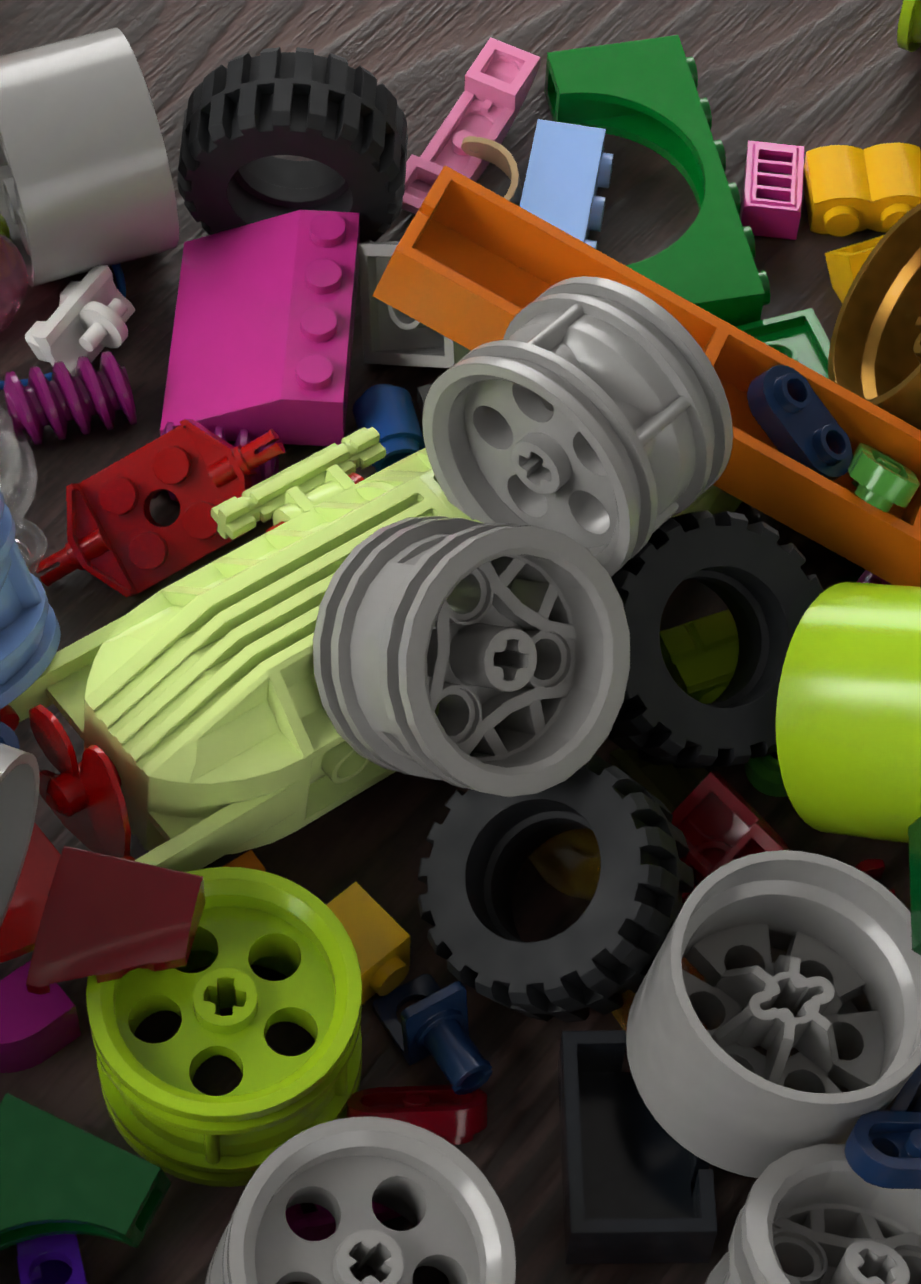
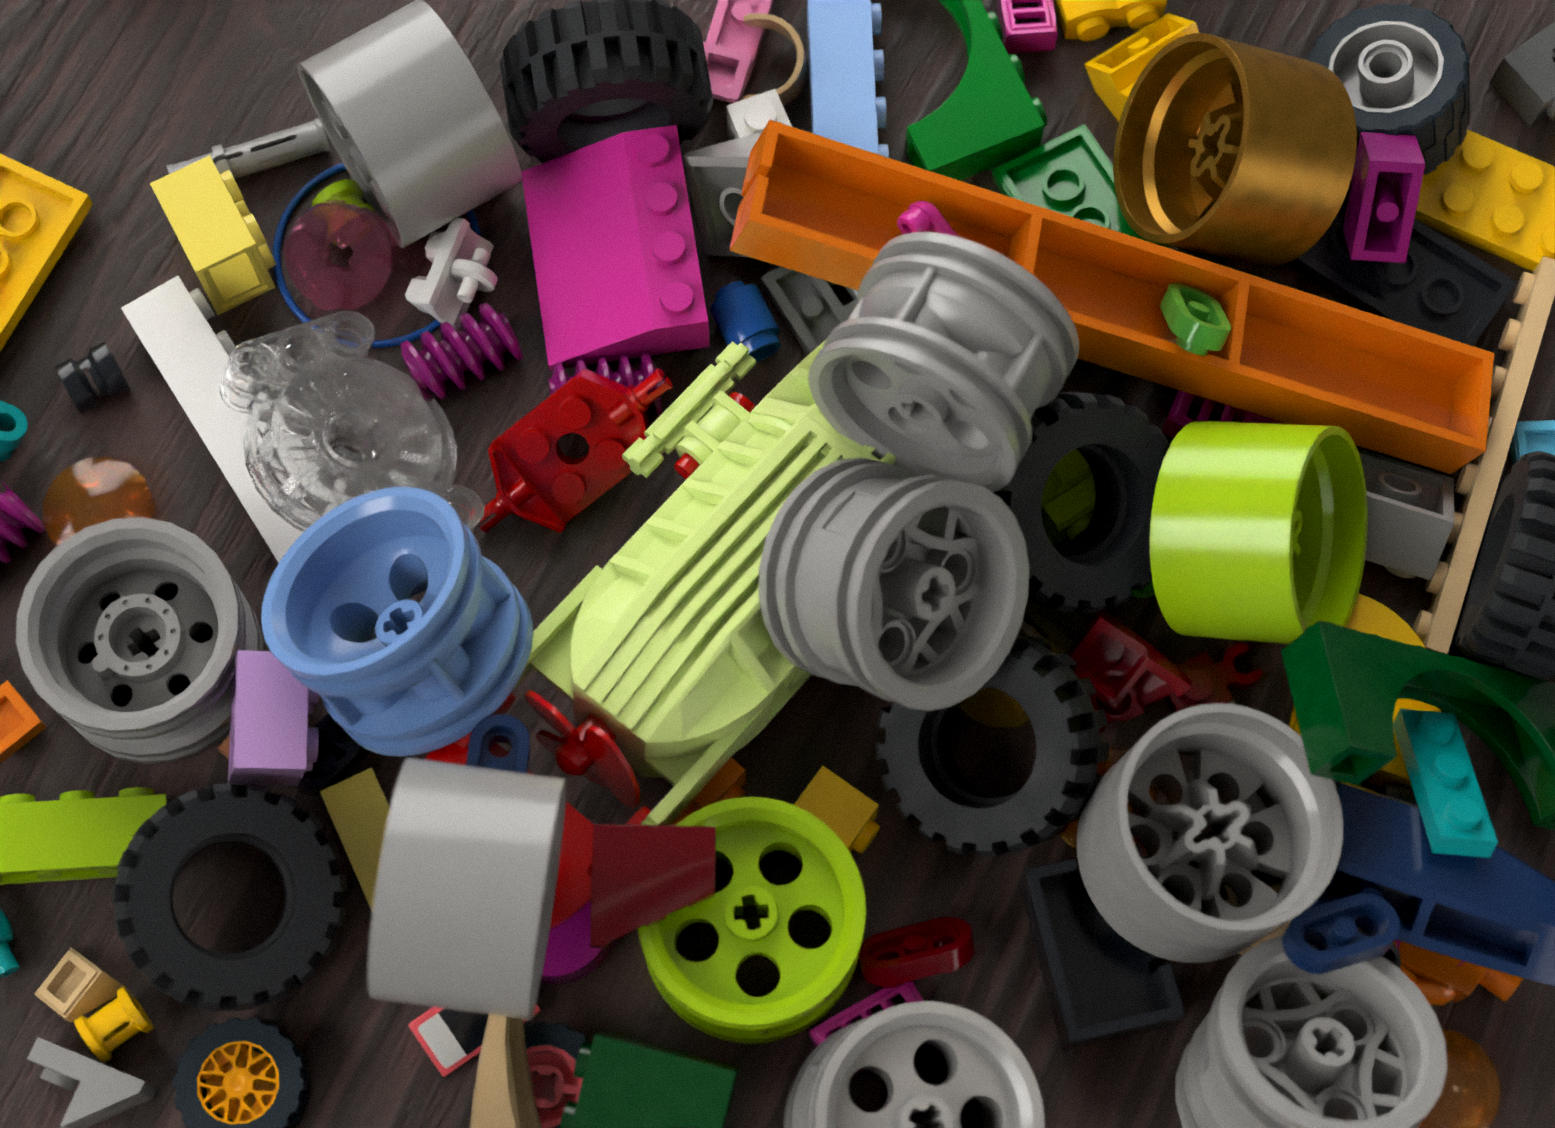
camera: 10 degrees left, 15 degrees up
(435, 1028) = (917, 879): dark blue bracket -> none
(799, 421) = (1116, 285): dark blue plate -> none

